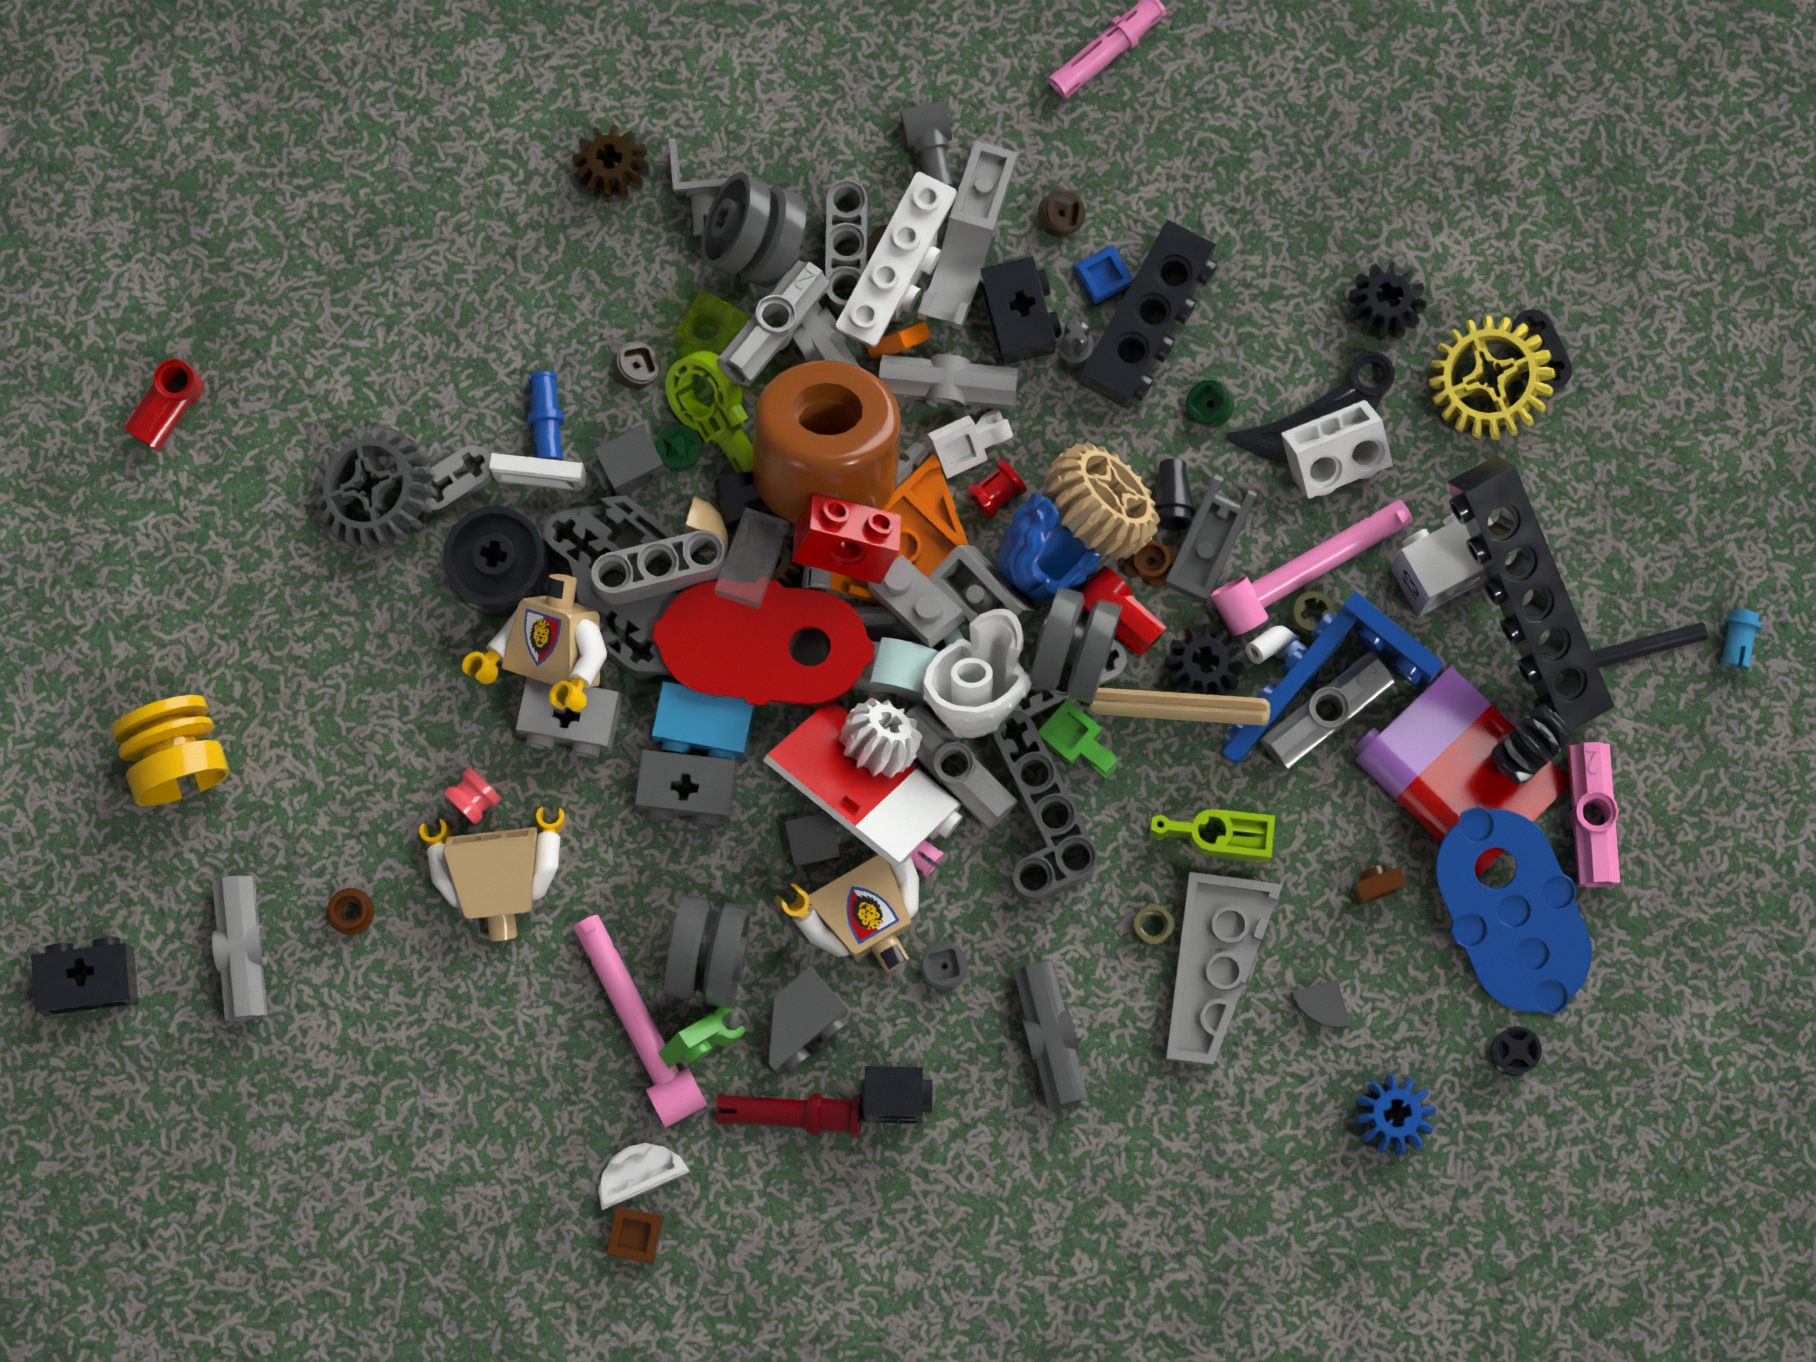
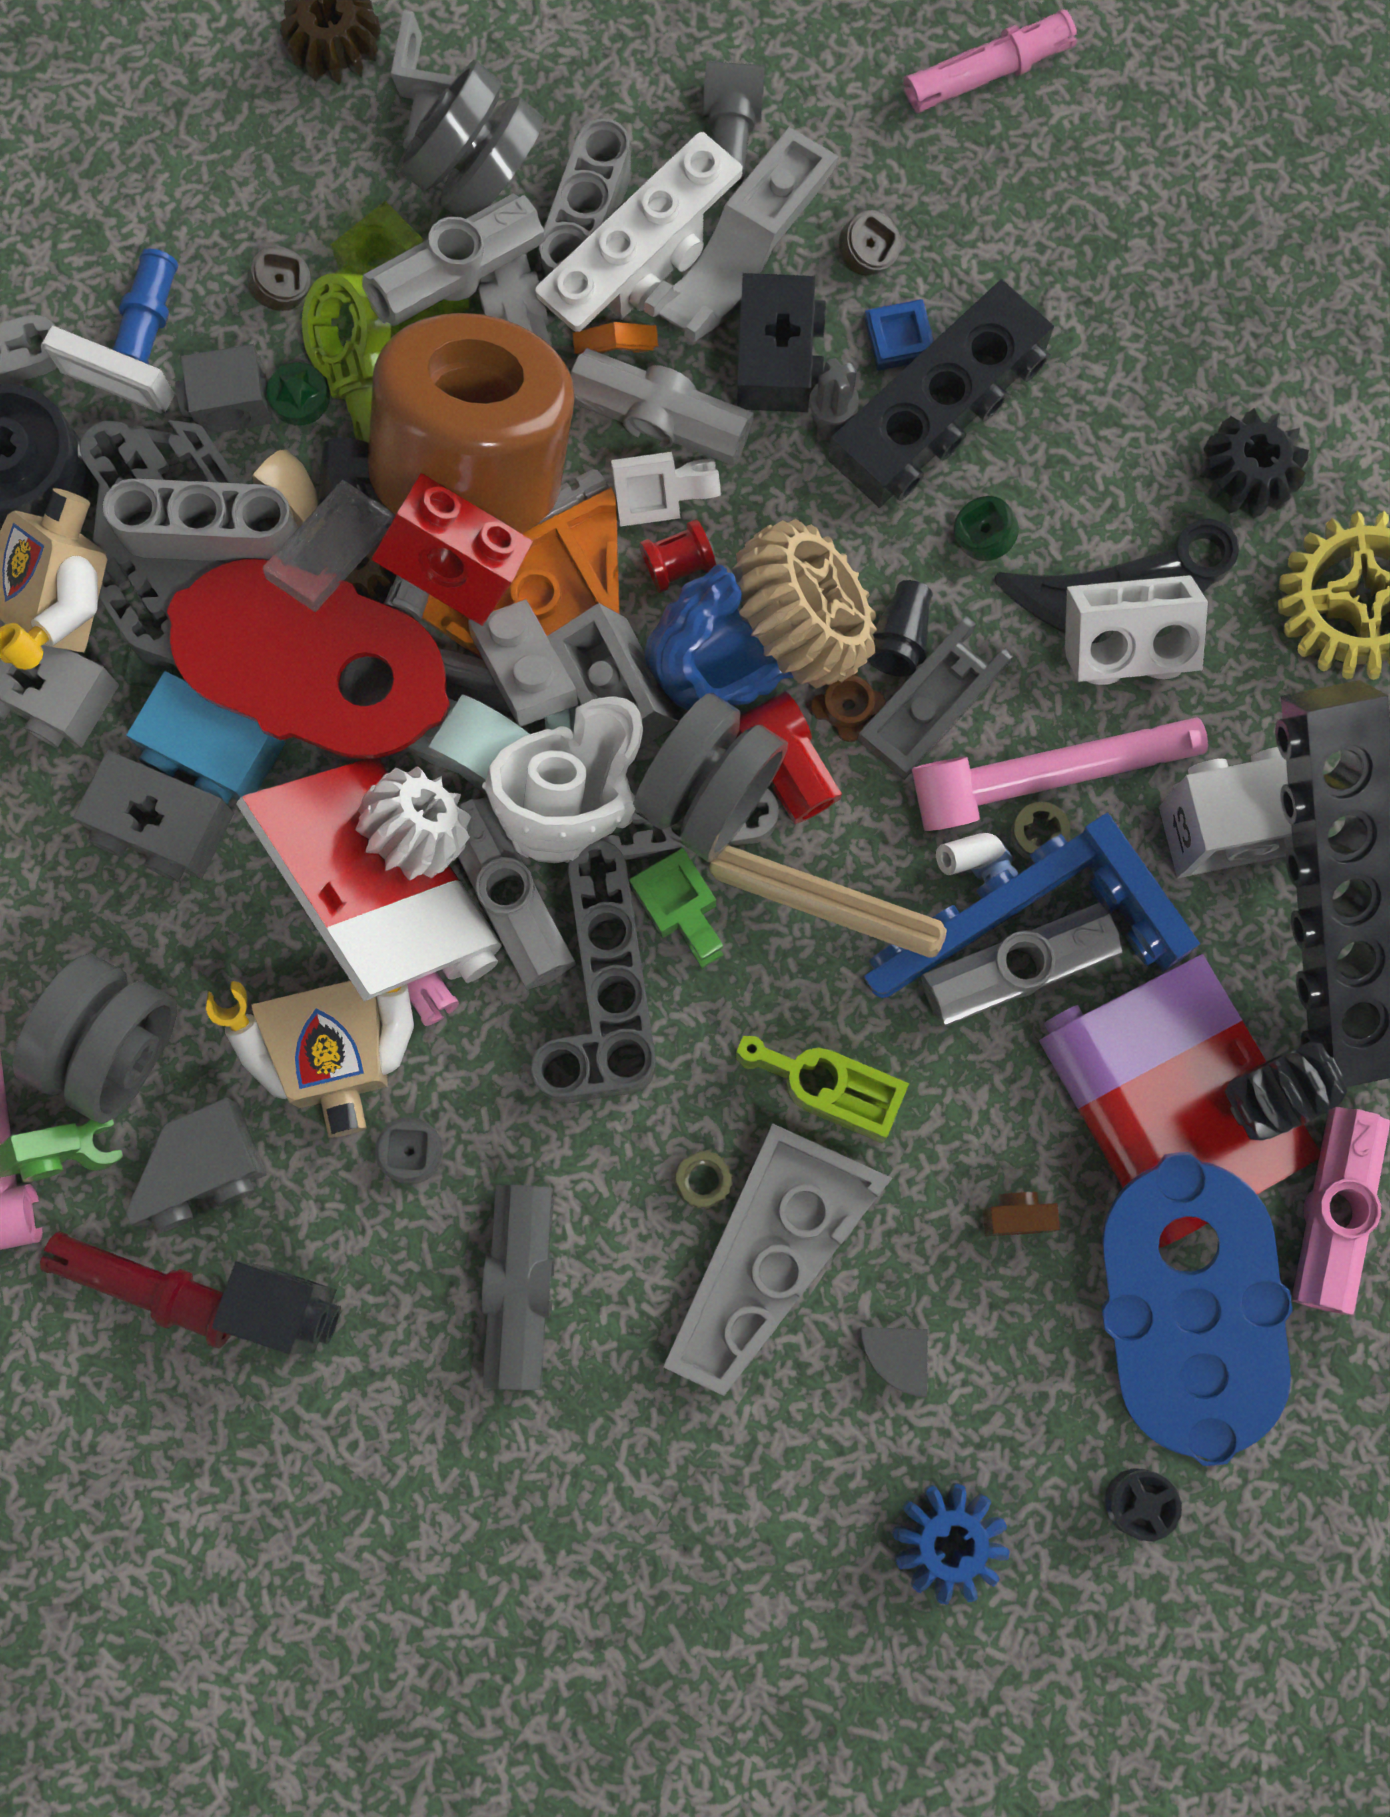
camera: 15 degrees right, 0 degrees up
(812, 839) = (291, 936): dark grey tile -> none
(1216, 653) = (899, 849): black gear -> none

